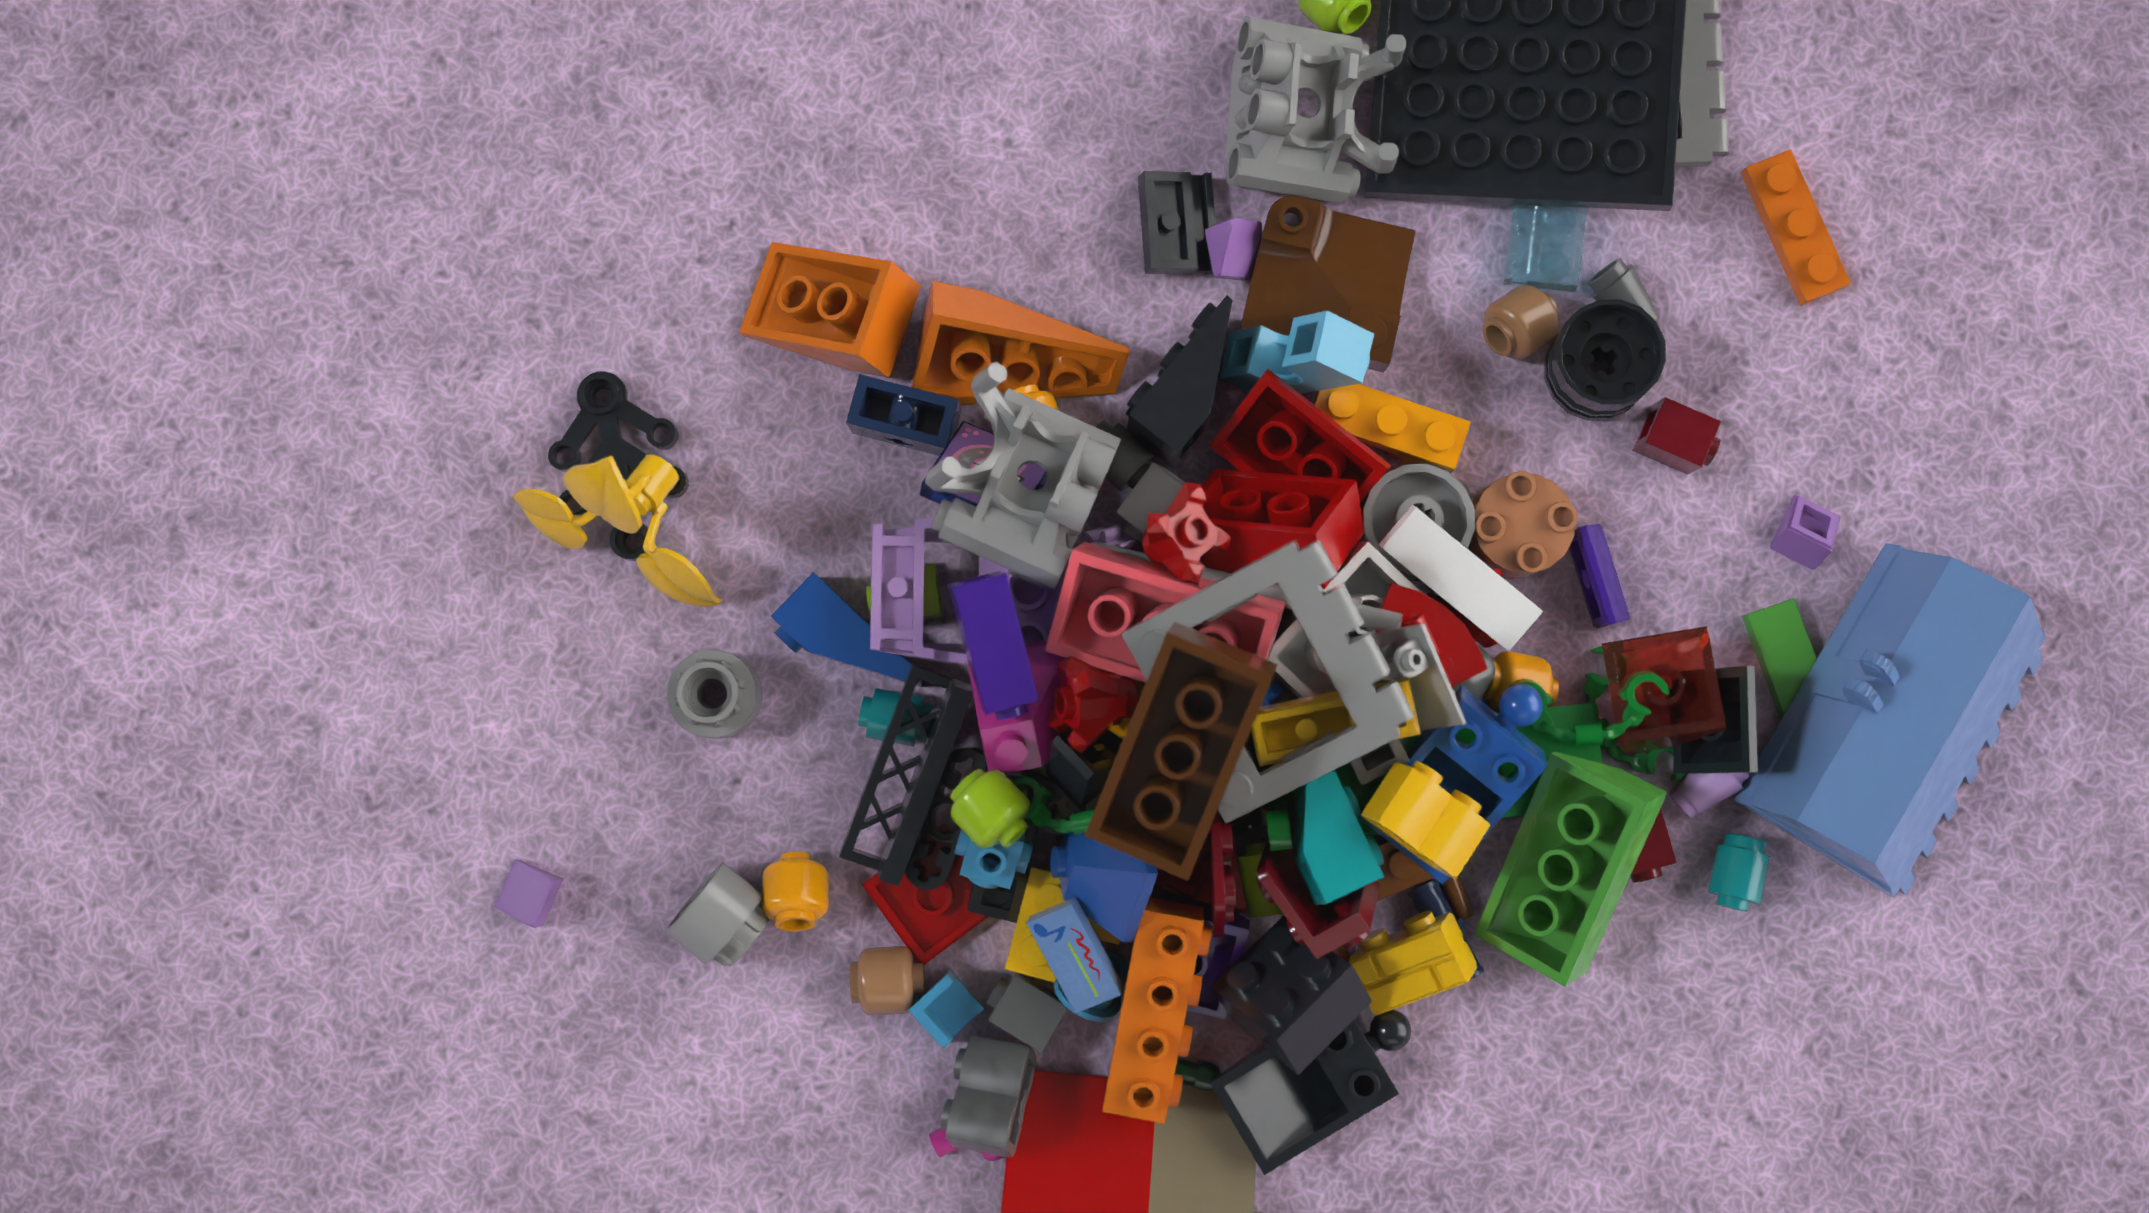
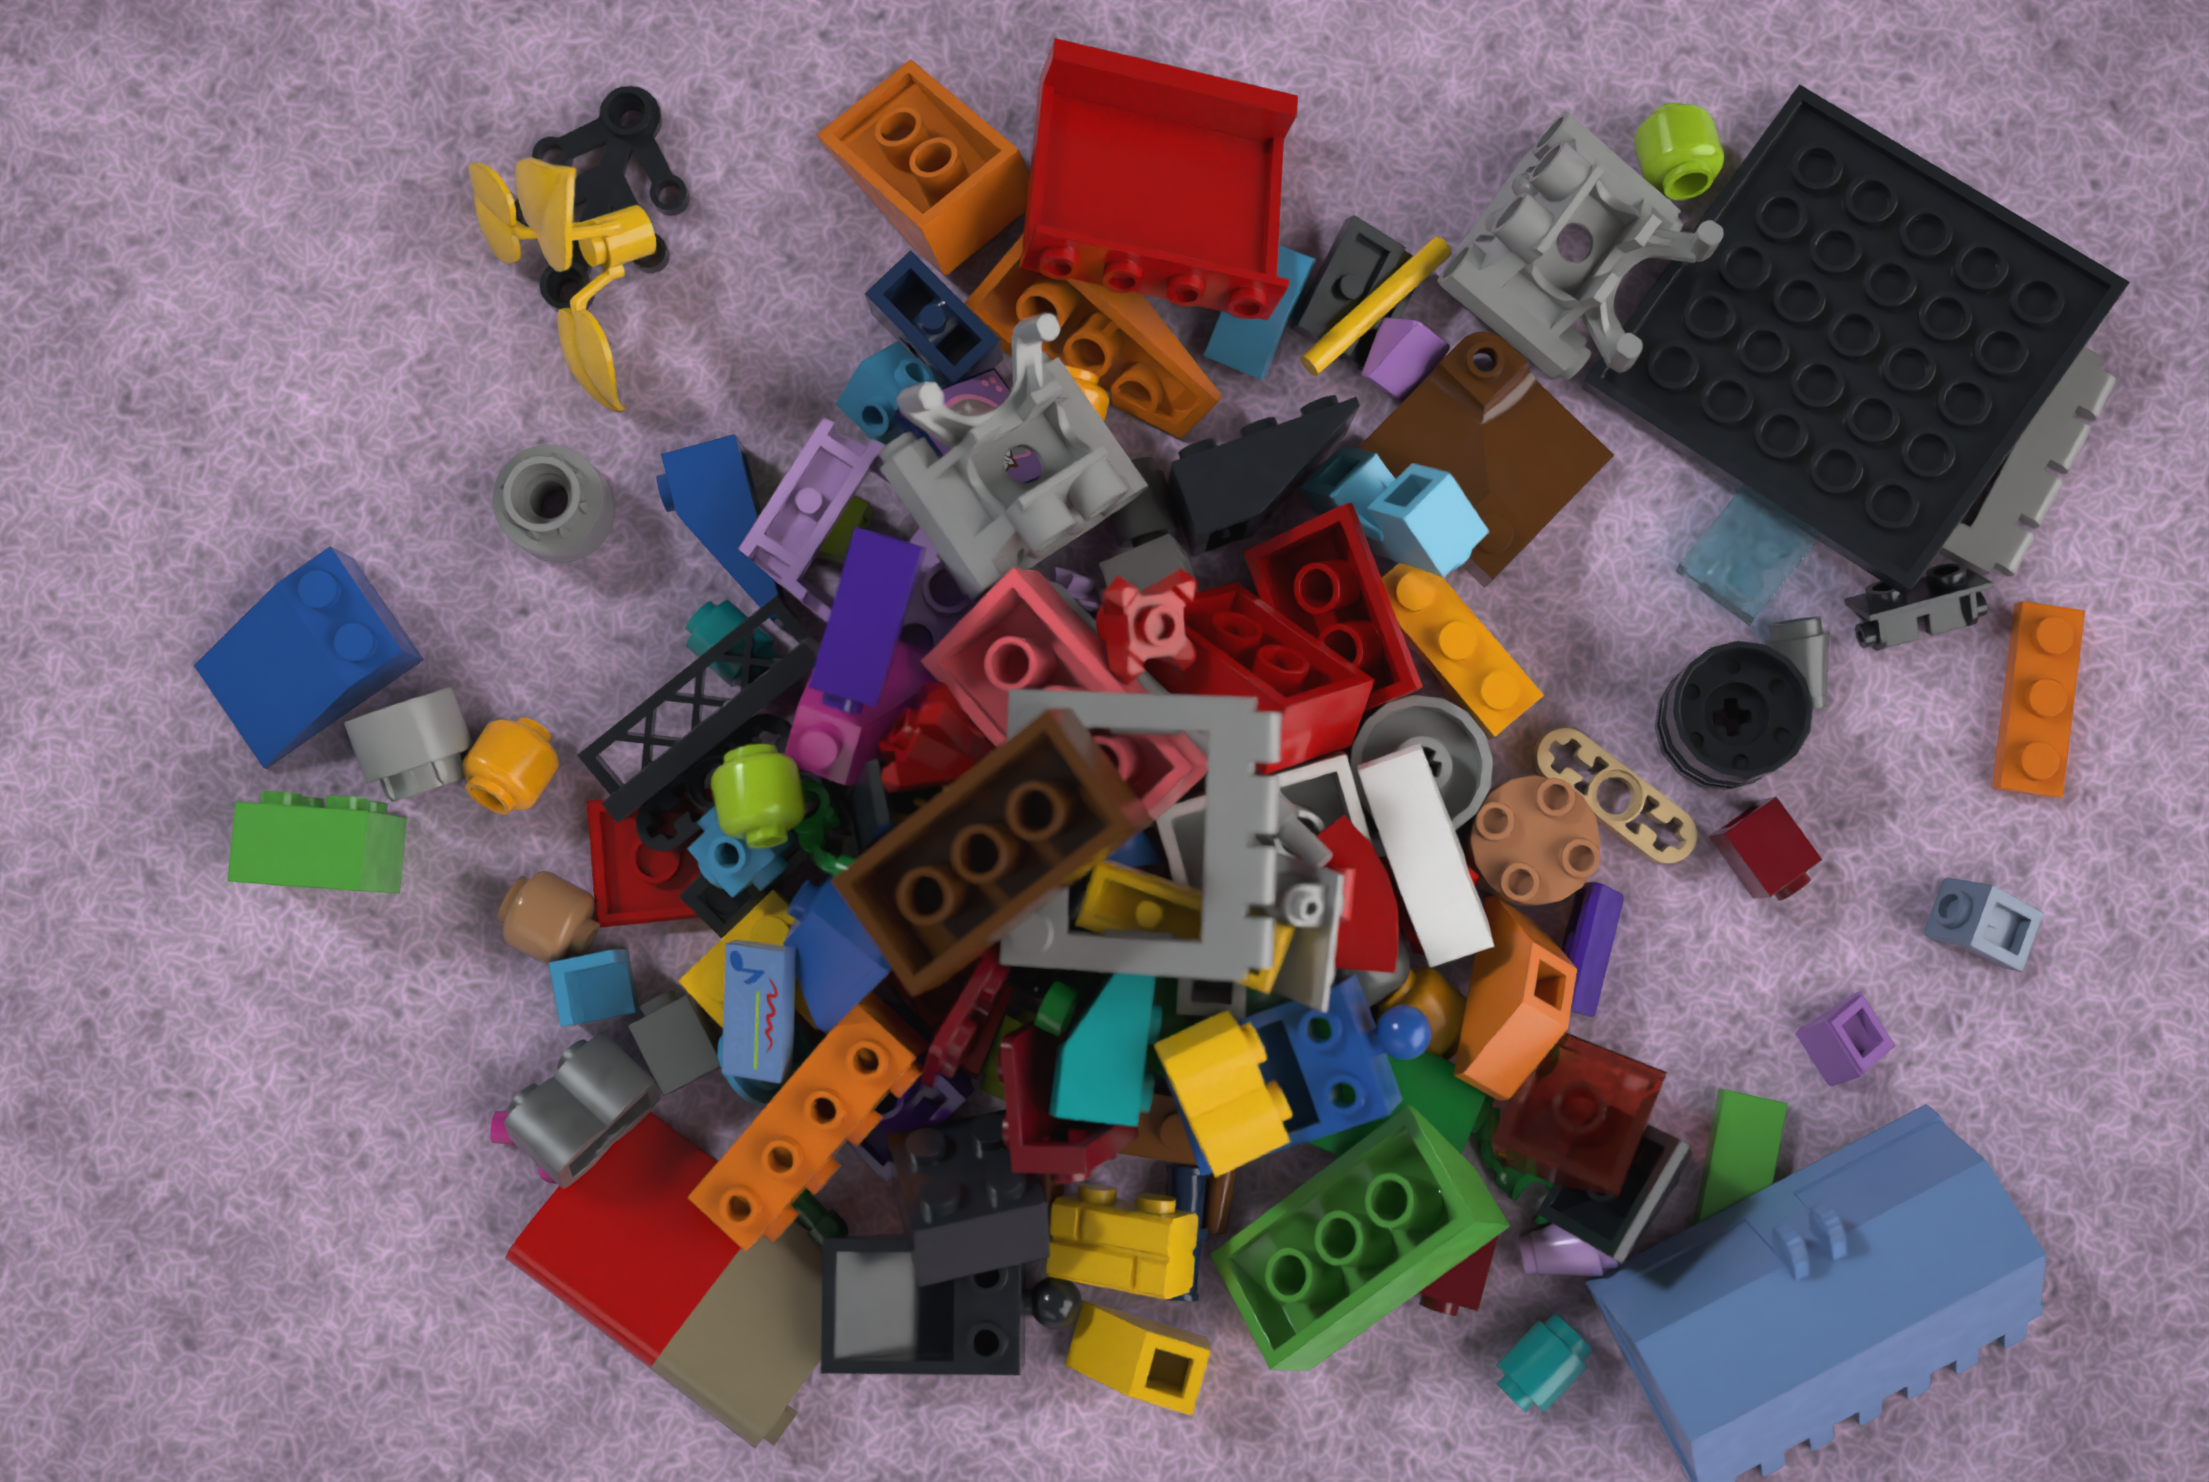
camera: 30 degrees right, 0 degrees up
(528, 893) = (228, 595): medium lavender slope -> none
(606, 903) = (306, 655): none -> blue slope
(695, 1032) = (303, 844): none -> bright green brick
(898, 482) = (874, 390): none -> dark azure brick
(998, 228) = (1157, 181): none -> red panel
(1116, 272) = (1252, 343): none -> dark azure slope
(1195, 224) = (1376, 306): none -> yellow bar
(1469, 1032) = (1139, 1356): none -> yellow slope
(1520, 322) = (1668, 622): medium nougat head -> none
(1577, 641) = (1514, 1003): none -> orange slope
(1593, 451) = (1663, 809): none -> tan beam
(1593, 733) = (1469, 1112): green piece -> none
(1695, 196) = (1945, 596): none -> black hinge
(1849, 398) = (1984, 922): none -> sand blue bracket

